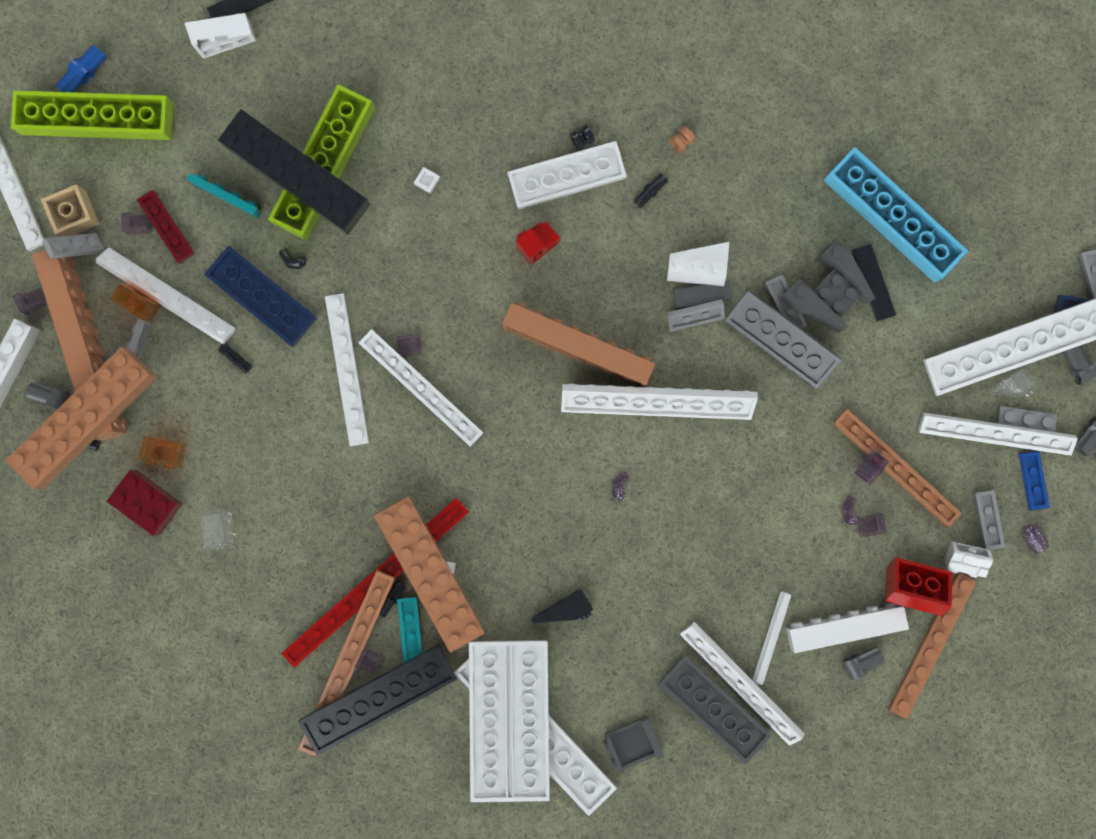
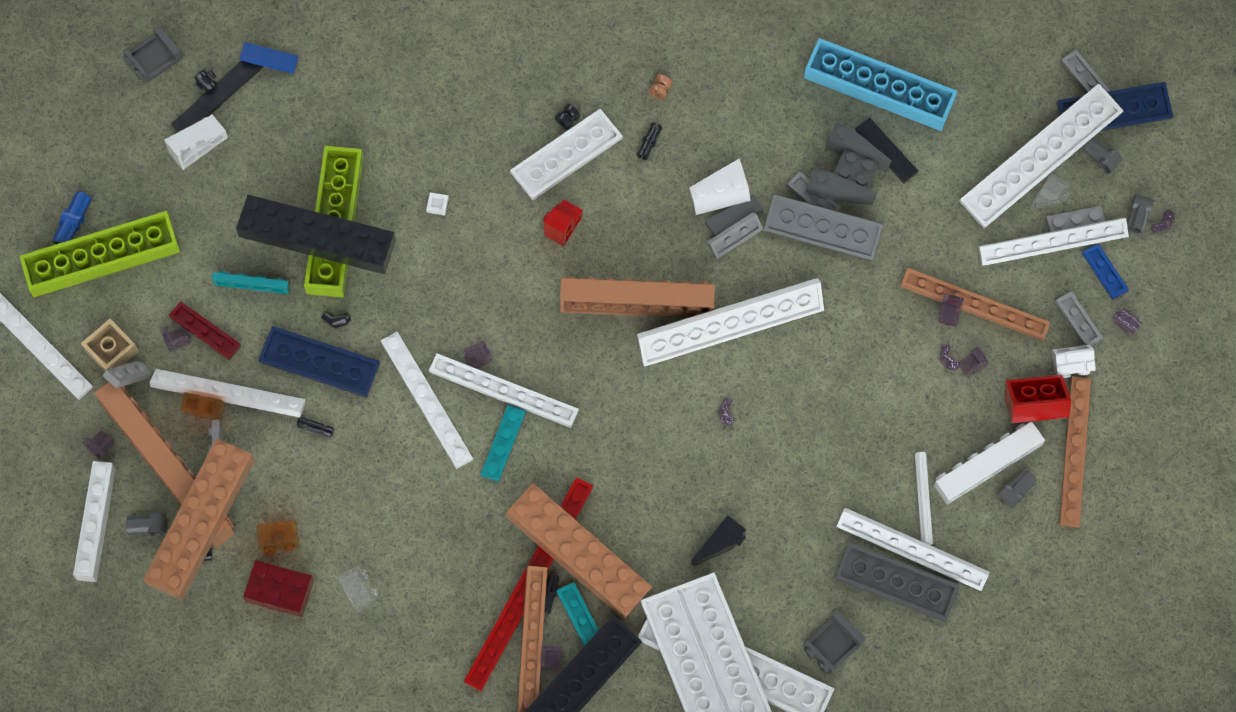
camera: 20 degrees left, 15 degrees down
(402, 438) = (503, 443): none -> teal plate

